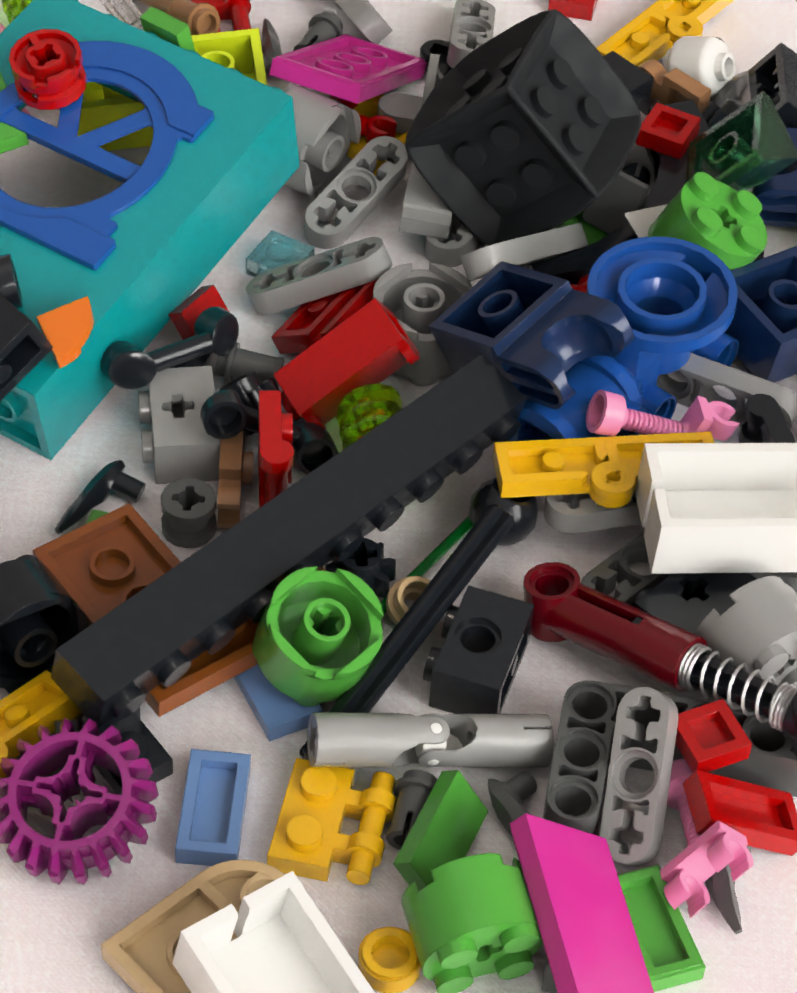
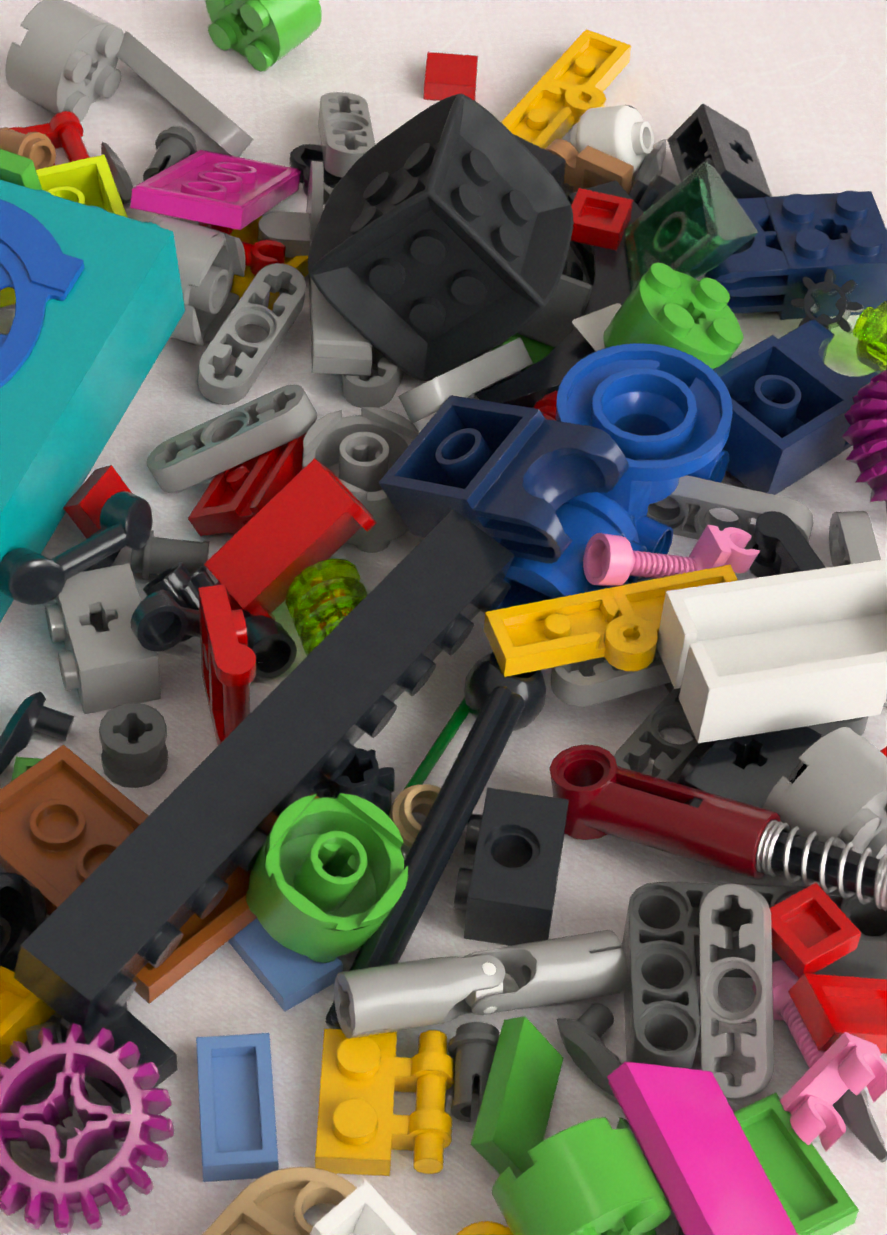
camera: 10 degrees left, 0 degrees up
(234, 470) = (178, 686): medium nougat plate -> none
(276, 251) = (172, 416): clear light blue plate -> none

